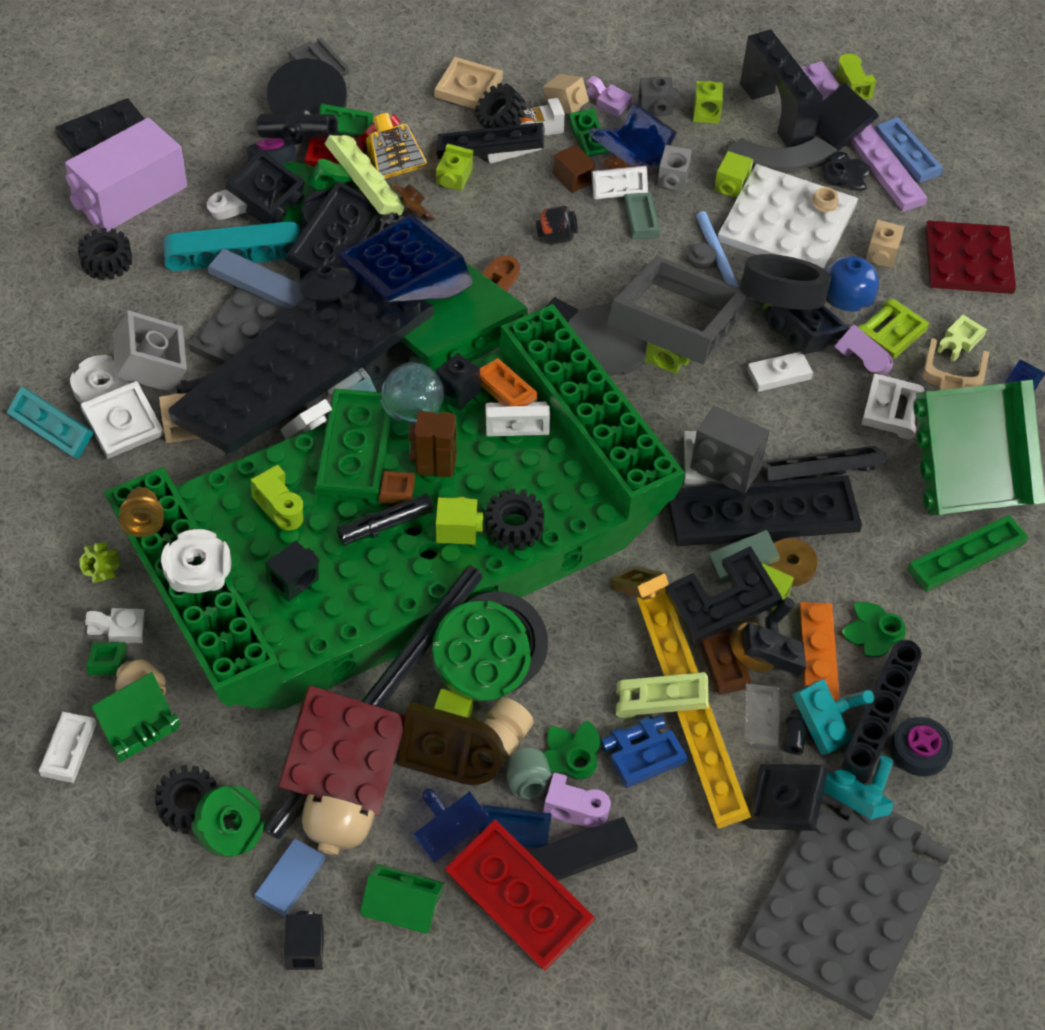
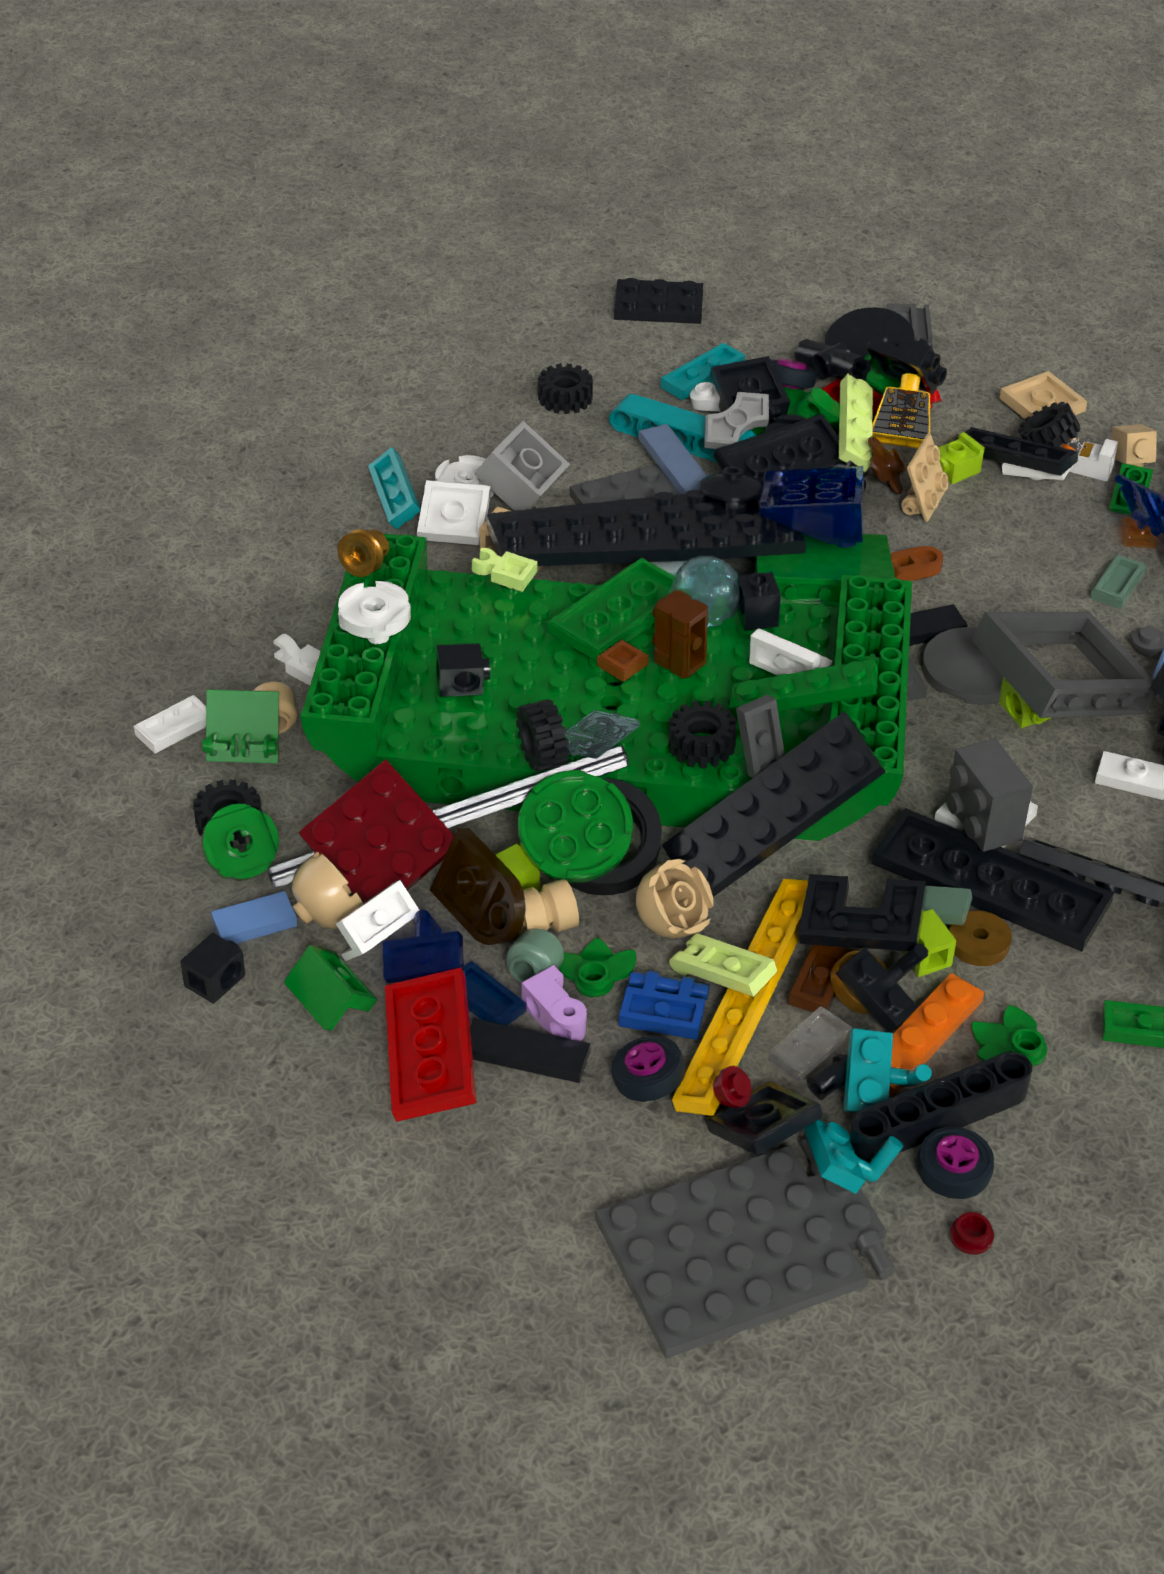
camera: 40 degrees right, 10 degrees down
(99, 562) = (323, 603): lime gear -> none
(106, 658) = (264, 673): green plate -> none
(126, 174) = (635, 332): lavender brick -> none
(199, 182) = (685, 378): none -> teal plate
(245, 456) = (507, 570): none -> yellowish green plate
(276, 499) = (505, 608): lime leg -> none
(278, 231) = (747, 412): none -> light grey tile
(307, 420) = (600, 568): white plate -> none
(374, 523) = (578, 675): black pin -> none
(376, 101) = (908, 357): none -> black plate
(399, 821) = (376, 919): none -> white panel
(411, 593) = (542, 735): none -> black tyre
(438, 565) = (598, 733): none -> clear light blue piece
(451, 205) = (927, 481): none -> tan hinge
(458, 520) = (648, 704): lime brick -> none
(506, 385) = (803, 625): orange plate -> none
(557, 225) = (1015, 547): black head -> none
(560, 441) = (810, 686): none -> green plate
(568, 500) = (760, 734): none -> dark grey plate
(573, 168) = (1081, 510): reddish brown brick -> none
(586, 665) = (674, 900): none -> tan cylinder
(609, 550) = (777, 804): none -> black plate
(619, 181) = (1118, 539): white plate -> none
(639, 582) = (793, 866): pearl gold plate -> none
(679, 797) = (648, 1068): none -> black wheel
(753, 788) = (732, 1087): none -> dark red plate
(972, 792) = (972, 1233): none -> dark red plate

